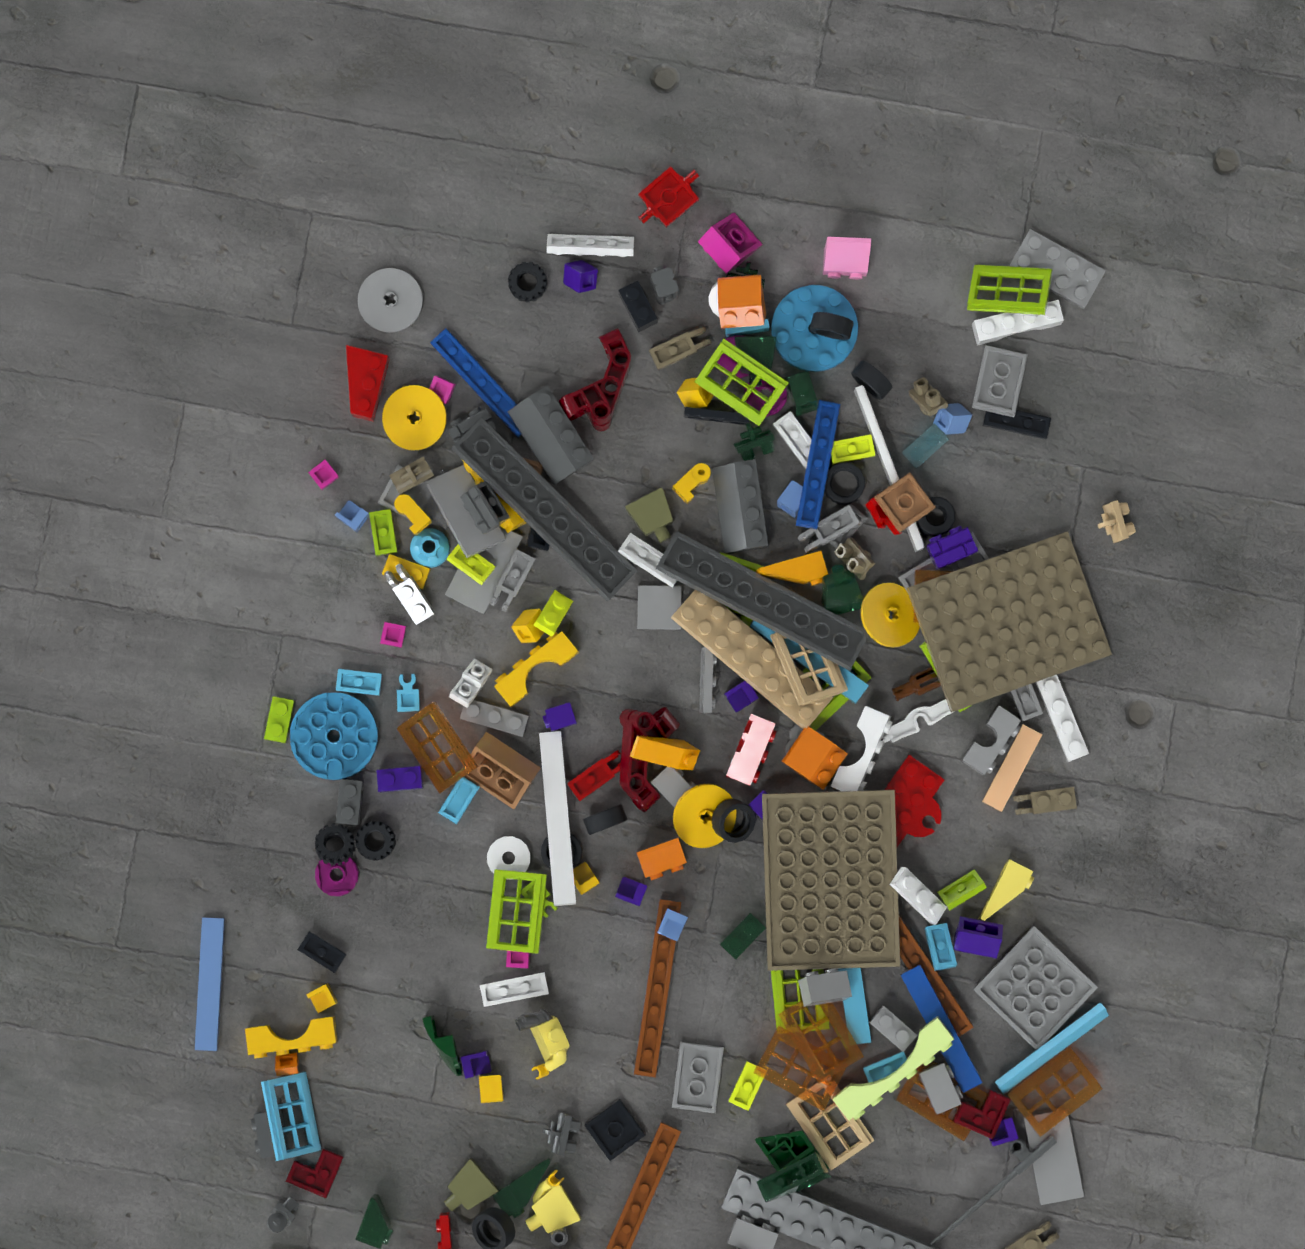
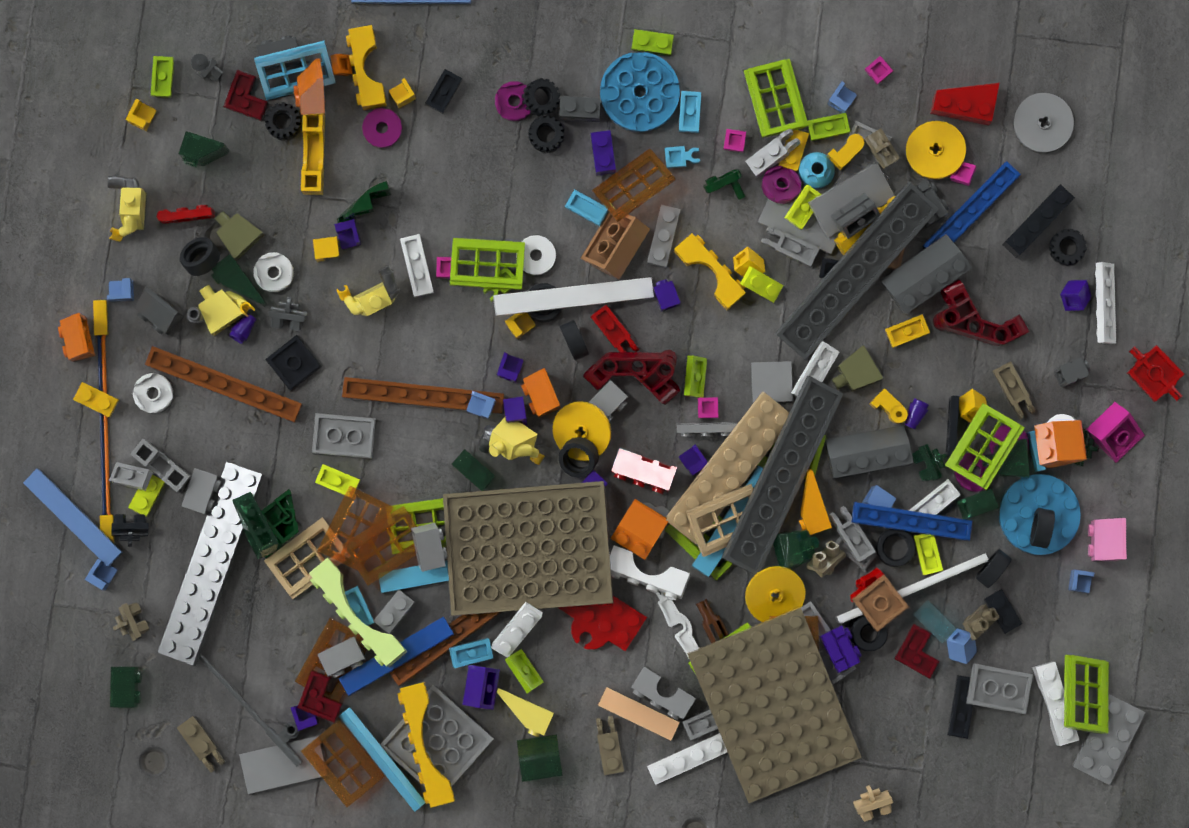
camera: 90 degrees right, 0 degrees up
(314, 1099) = (310, 90): none -> orange slope
(346, 1145) = (277, 110): none -> black tyre
(347, 1028) = (386, 139): none -> magenta tile
(352, 607) = (758, 104): none -> lime piece
(384, 1099) = (313, 154): none -> yellow arch
(440, 659) = (714, 183): none -> dark green piece
(454, 592) = (776, 193): none -> magenta tile
(470, 683) = (694, 213): white slope -> none
(498, 311) = (1038, 221): none -> black brick
(507, 1160) = (276, 284): none -> white tile
(575, 1185) = (241, 330): none -> dark purple cone
(610, 458) = (907, 331): none -> yellow plate
(638, 306) = (1050, 349): black brick -> none
(650, 689) = (695, 376): none -> lime plate
(665, 752) = (638, 391): light orange slope -> none
(679, 887) = (515, 410): none -> dark purple panel
(684, 677) = (708, 407): none -> dark pink plate
(699, 453) = (916, 413): none -> dark purple cone
(712, 894) = (510, 441): none -> light yellow torso
(888, 289) = (1080, 581): none -> medium blue panel
(923, 367) = (1007, 618): none -> black plate
(957, 472) = (912, 655): none -> dark red tile
(1056, 877) = (539, 758): none -> clear green slope
(1083, 988) = (437, 786): none -> yellow arch

